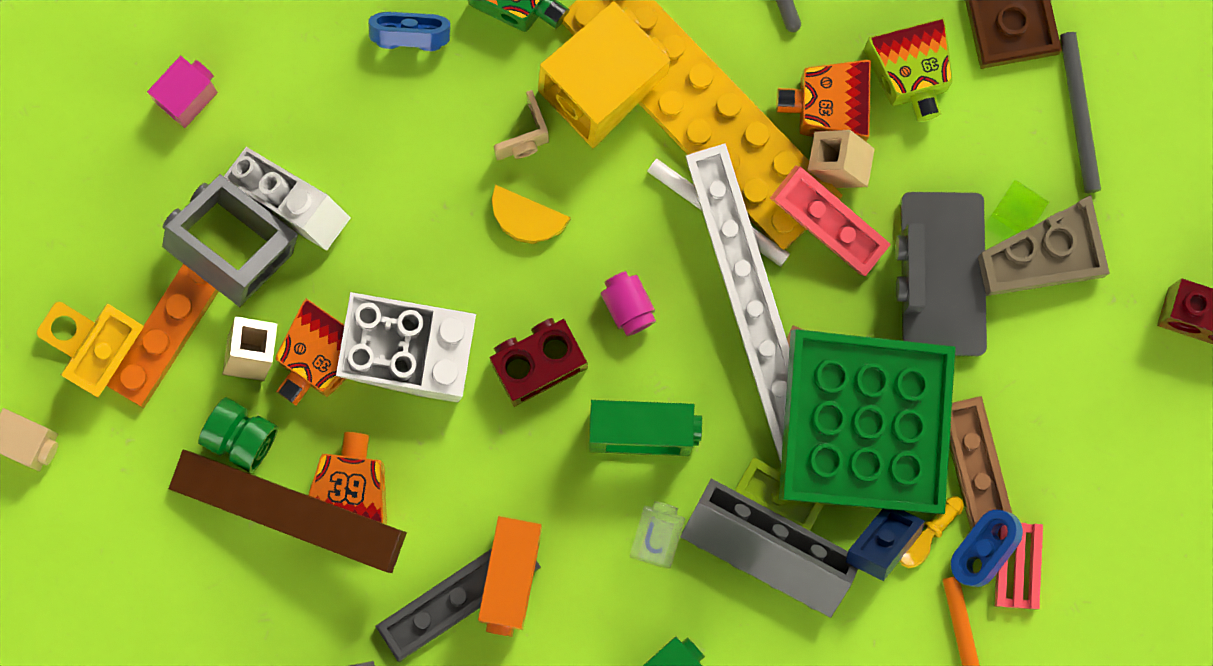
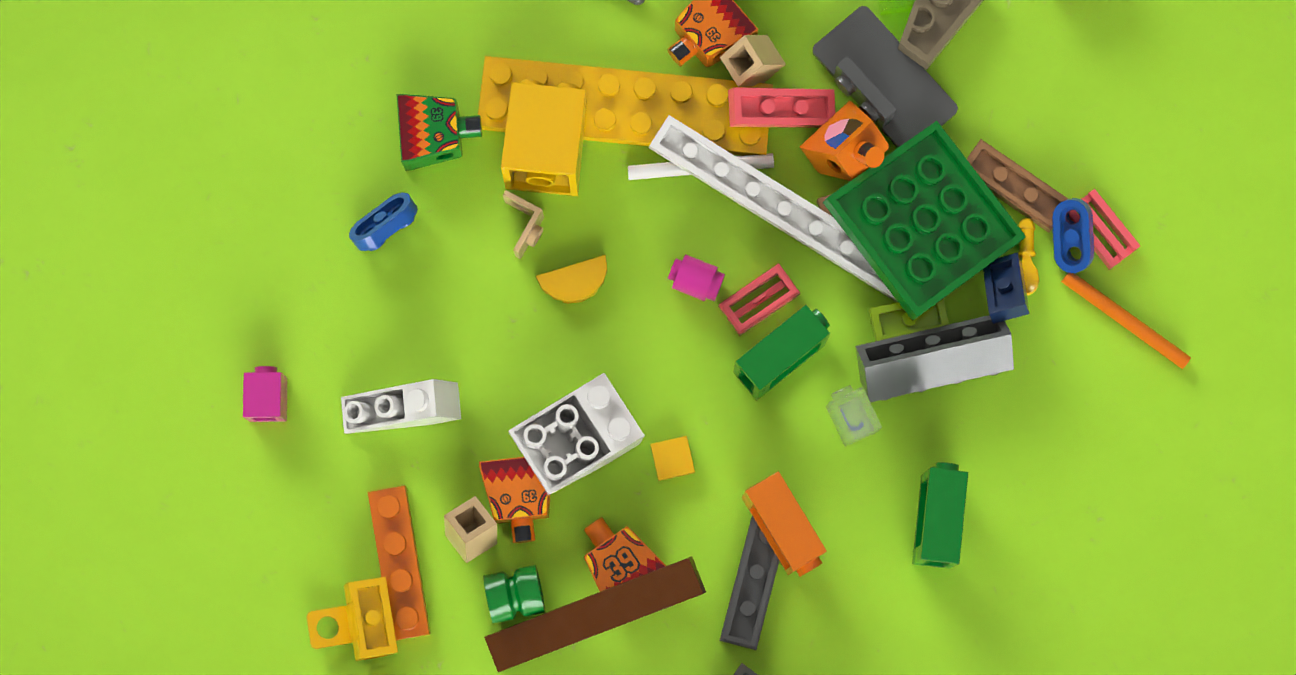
camera: 35 degrees left, 0 degrees up
(232, 283) = (389, 496): dark grey window -> none
(473, 438) = (672, 458): none -> yellow tile
(543, 371) = (679, 372): dark red brick -> none
(665, 384) = (733, 317): none -> coral tile
(857, 299) = (846, 144): none -> orange torso

